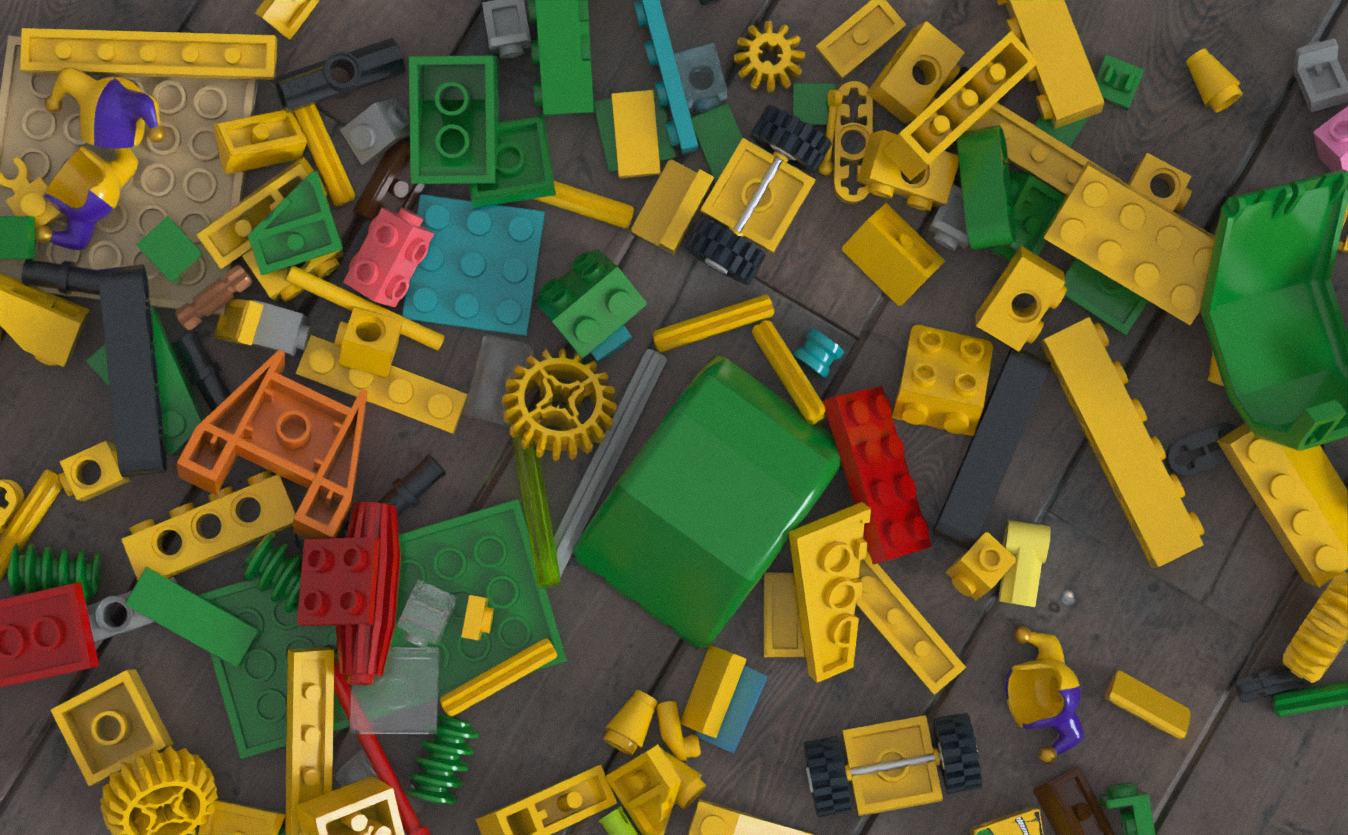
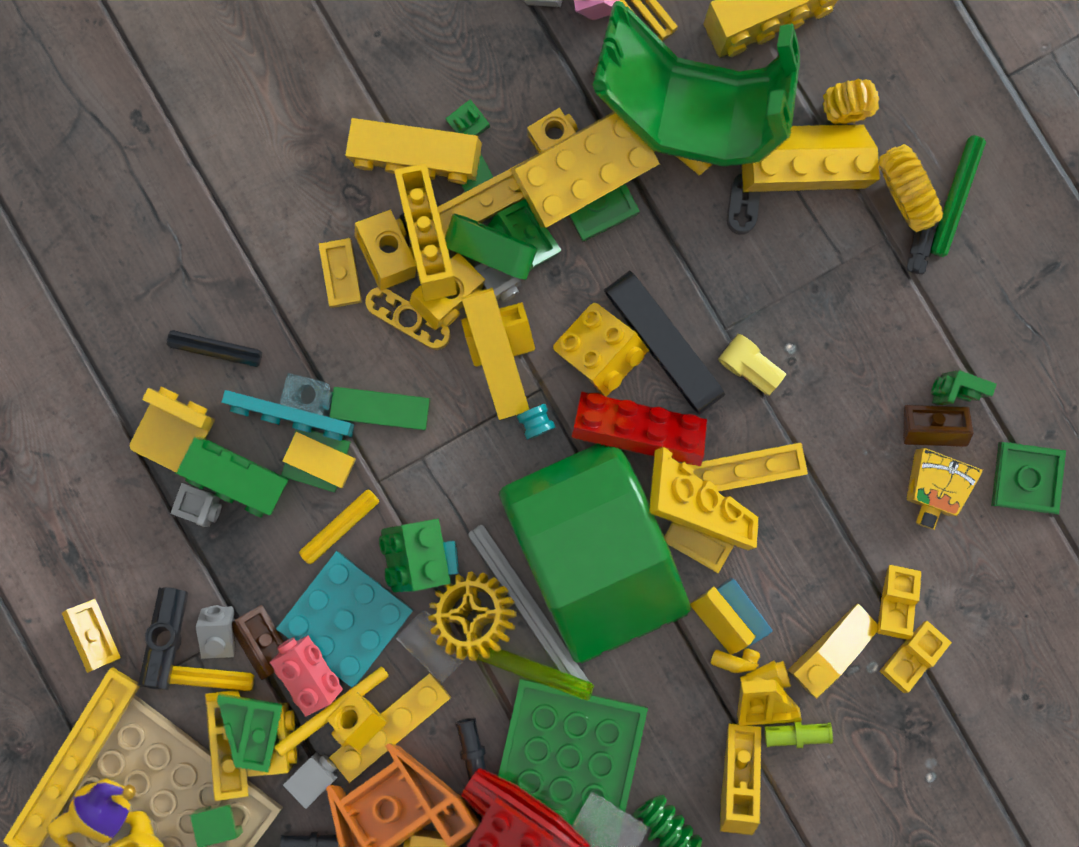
camera: 55 degrees left, 0 degrees up
(213, 297) = (265, 812): nougat axle -> none
(239, 323) = (292, 804): yellow tile -> none
(259, 141) = (176, 719): yellow slope -> none
(426, 614) = (563, 787): clear brick -> none
(453, 119) = (237, 578): green slope -> none
(477, 618) = (586, 755): yellow plate -> none
(498, 677) = (633, 762): yellow axle -> none
(522, 165) = (288, 556): green tile -> none
(631, 723) = (713, 687): yellow cone -> none
(672, 206) = (381, 462): yellow panel -> none
(713, 323) = (476, 480): yellow axle -> none
(758, 194) = (407, 401): plate -> none
(772, 43) = (311, 334): yellow gear -> none
(789, 372) = (538, 448): yellow axle -> none
(811, 102) = (368, 330): green tile -> none
(834, 100) = (372, 314): yellow hinge -> none
(868, 263) = (495, 353): none -> yellow tile
(893, 765) = (840, 528): plate -> none
(980, 567) = (741, 394): yellow bracket -> none
(1027, 275) = (563, 253): yellow brick -> none
(1045, 693) = (847, 399): yellow piece -> none
(1122, 443) = (709, 254): yellow brick -> none
(1148, 705) = (891, 336): yellow slope -> none
(1214, 82) = (503, 58): yellow cone -> none

